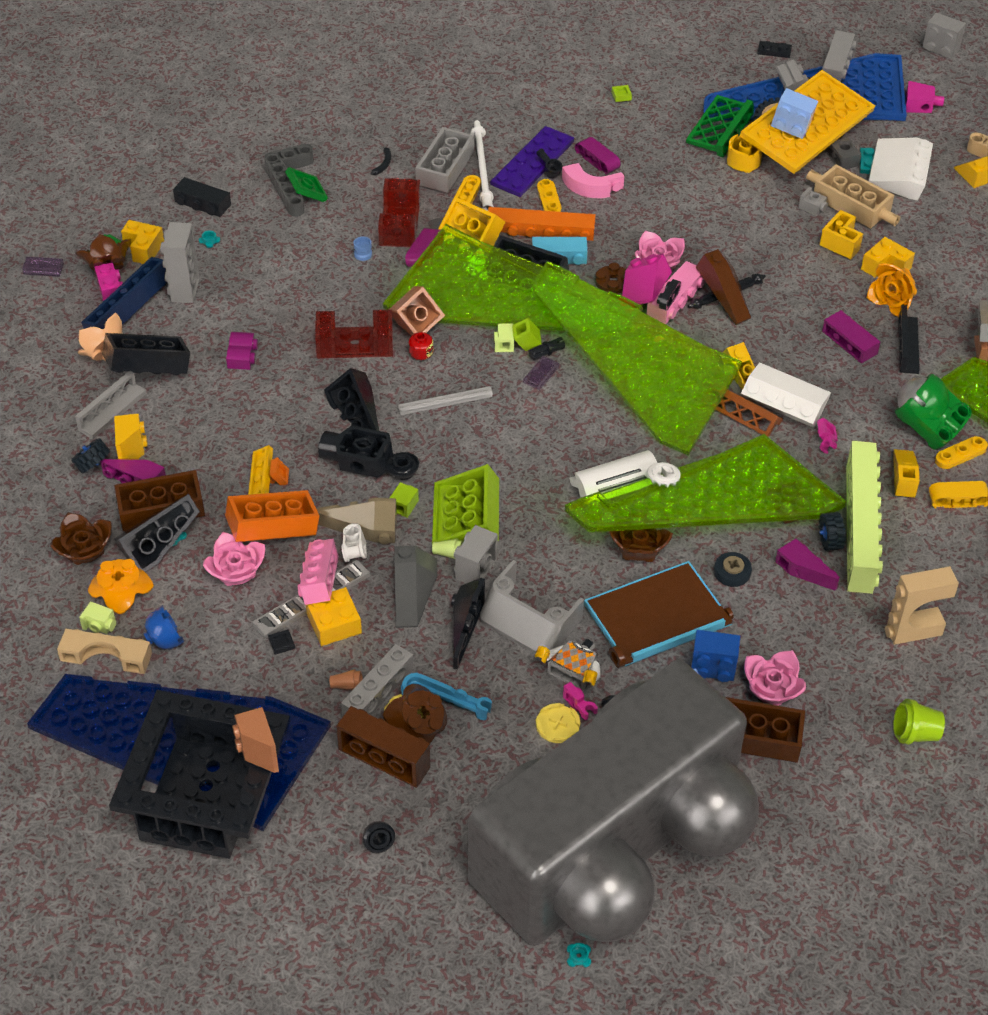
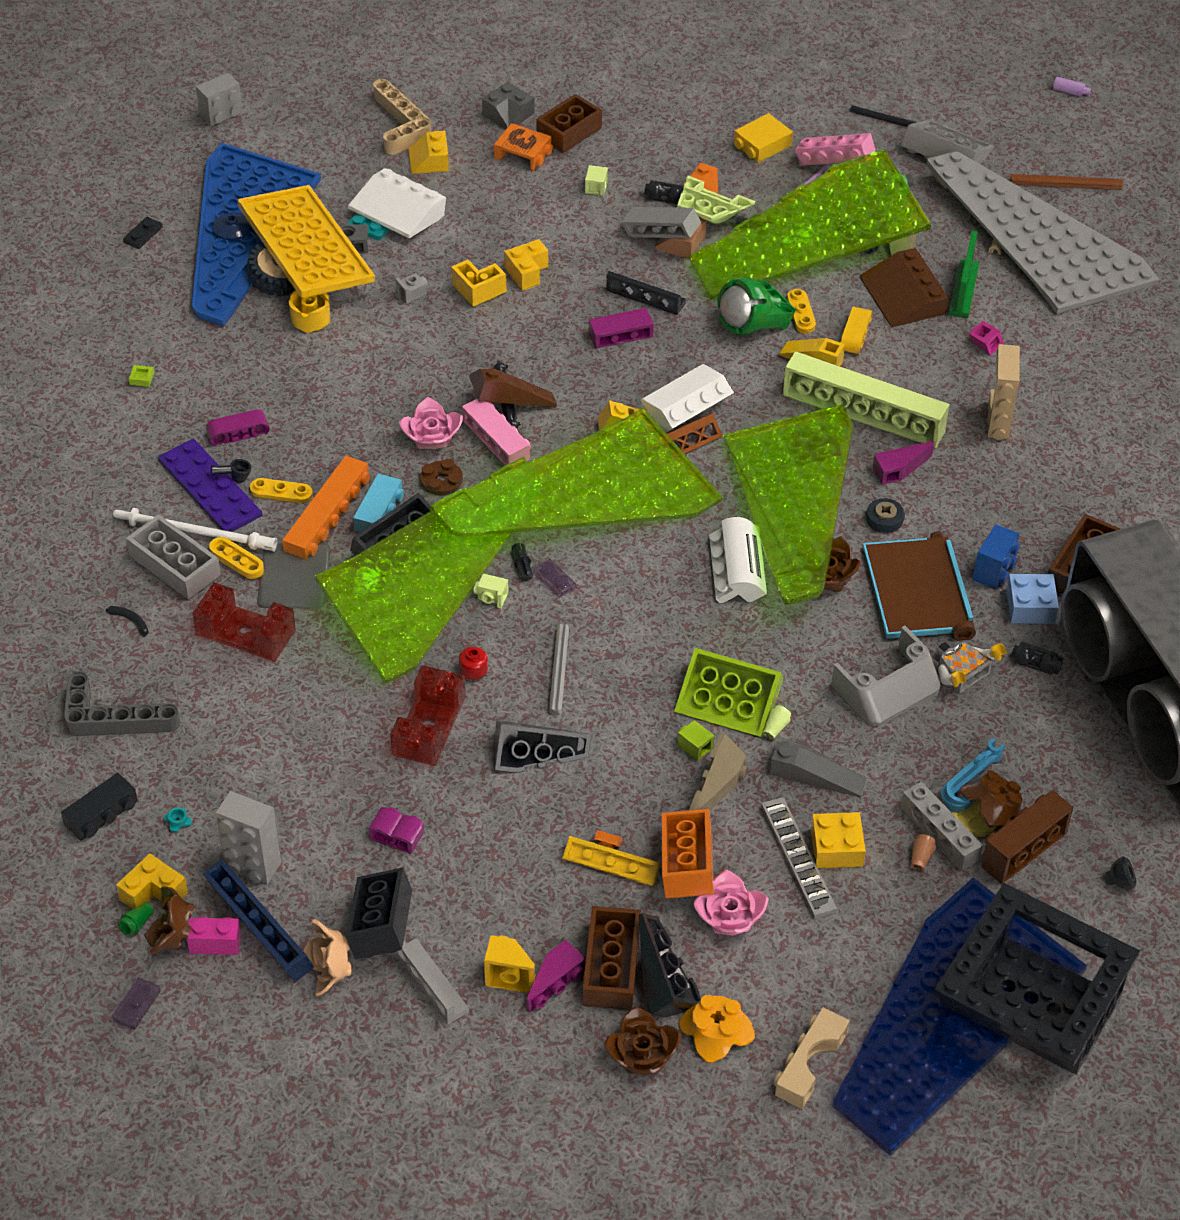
camera: 70 degrees left, 0 degrees up
(90, 455) = (513, 1009): black wheel -> none
(98, 618) = (763, 1054): yellowish green brick -> none
(162, 629) = (804, 994): blue cylinder -> none
(255, 739) = (1052, 900): nougat slope -> none
(281, 642) = (848, 897): black tile -> none
(306, 184) = (141, 696): green tile -> none
(318, 571) = (783, 830): bright pink brick -> none
(353, 543) = (749, 797): white piece -> none
(362, 248) = (281, 674): medium blue wheel -> none
(366, 453) = (620, 752): black brick -> none
(416, 311) = (423, 646): nougat slope -> none
(420, 245) = (313, 618): magenta beam -> none
(467, 610) = (873, 728): black wedge -> none
(473, 221) = (304, 560): yellow slope -> none
(475, 554) = (808, 697): light grey brick -> none
(527, 334) = (503, 567): lime brick -> none
(557, 722) = (1024, 702): light yellow tile -> none
(575, 699) = (1008, 676): dark pink plate -> none
(589, 185) = (281, 452): bright pink arch -> none
(646, 278) = (474, 447): dark pink slope -> none
(671, 292) = (516, 431): black plate -> none
(671, 474) = (761, 511): white gear -> none
(734, 127) = (267, 306): green fence -> none
(774, 679) = (1035, 527): bright pink brick -> none
(791, 75) = (221, 230): light grey brick -> none
(794, 113) = (312, 238): light blue brick -> none
(828, 434) = (740, 390): dark pink plate -> none
(832, 531) = (873, 427): black wheel -> none
(840, 54) = (204, 186): light grey brick -> none
(855, 196) = (425, 252): tan brick -> none
(883, 289) = (590, 276): light orange brick -> none
(917, 723) = (1111, 451): lime piece -> none
(921, 98) = (298, 152): dark pink torso -> none

